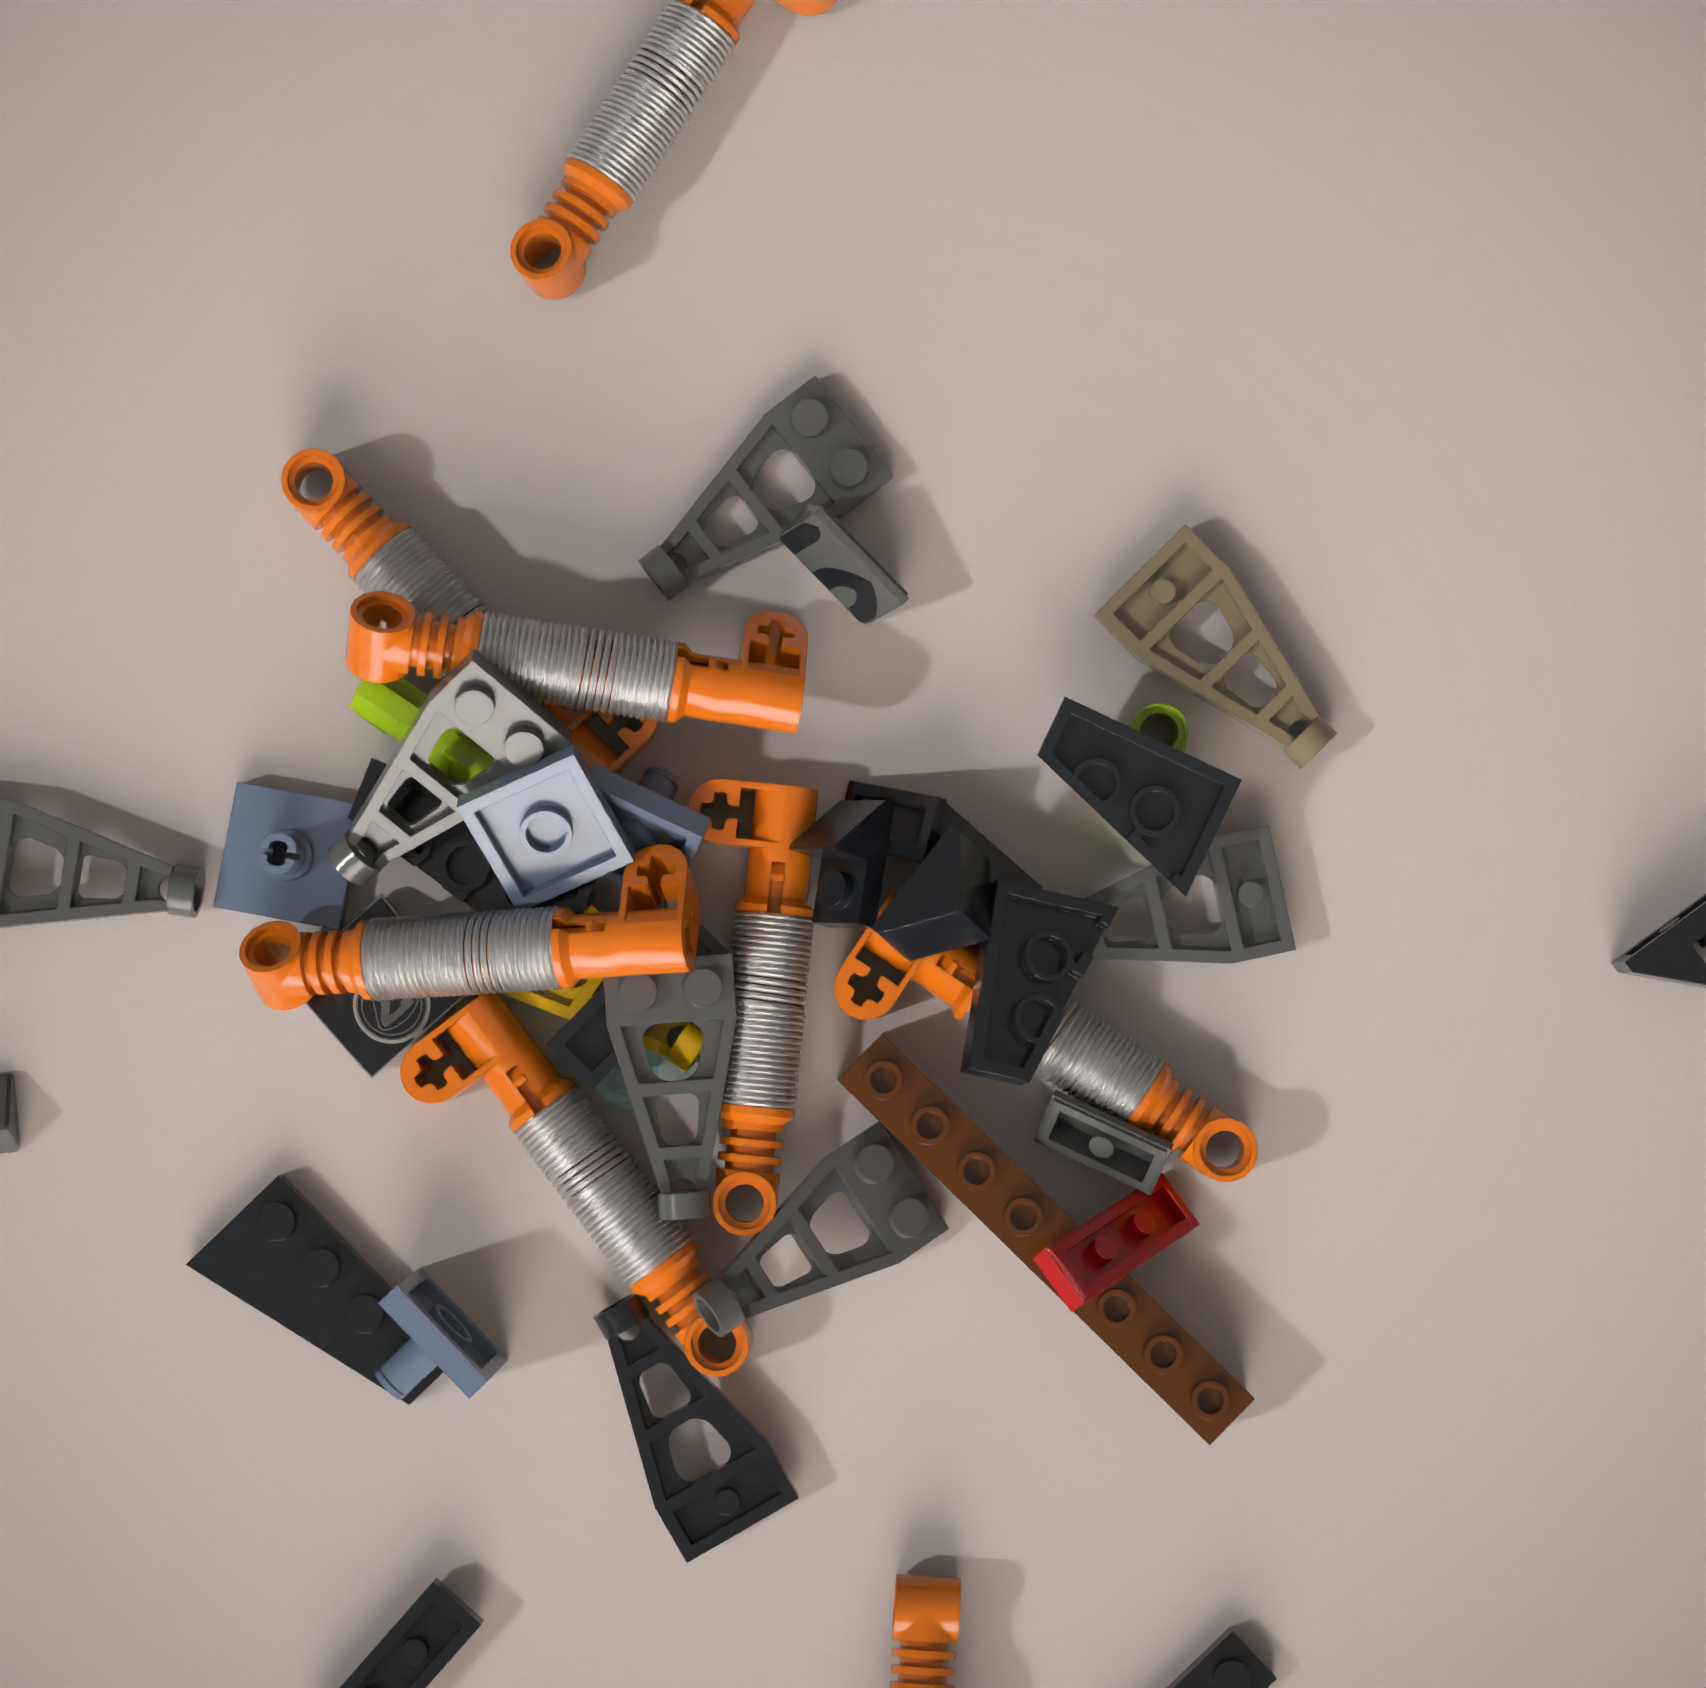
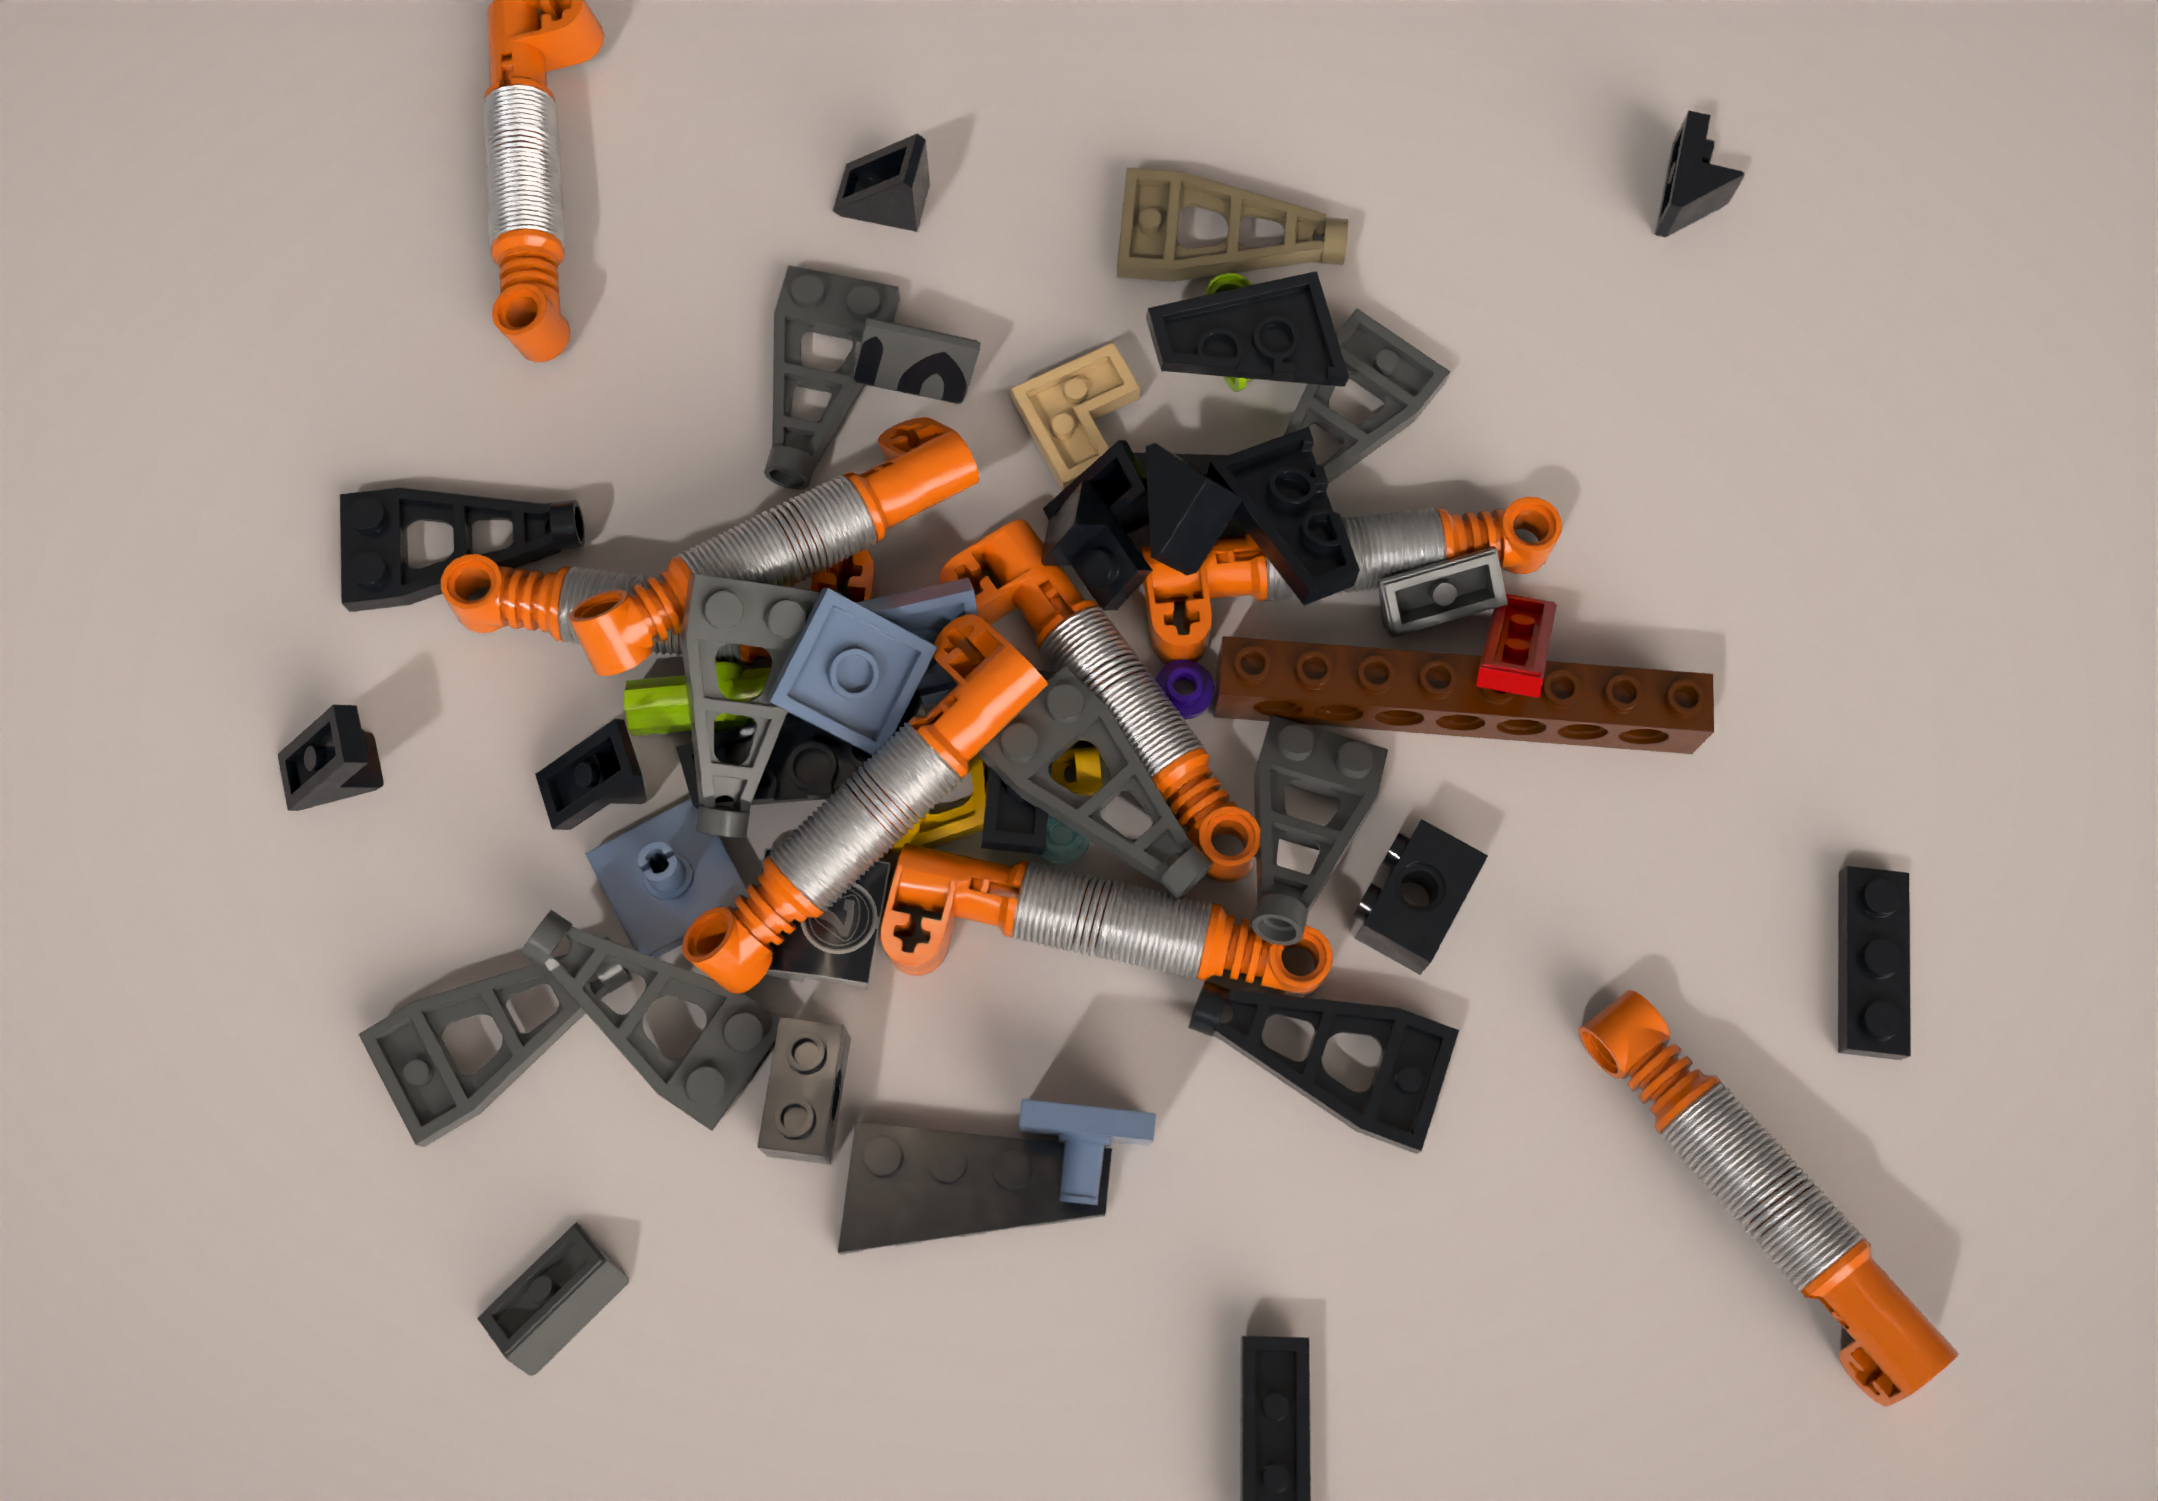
camera: 40 degrees left, 15 degrees down
(92, 535) = (330, 761): none -> black slope
(213, 1037) = (717, 1062): none -> dark grey plate
(255, 1123) = (804, 1091): none -> brick
(269, 364) = (376, 542): none -> black plate
(285, 725) = (591, 777): none -> black slope
(837, 1397) = (1446, 872): none -> black brick
(848, 1033) = (1195, 703): none -> dark purple plate
(941, 702) = (1063, 406): none -> tan plate
(959, 365) = (887, 185): none -> black slope

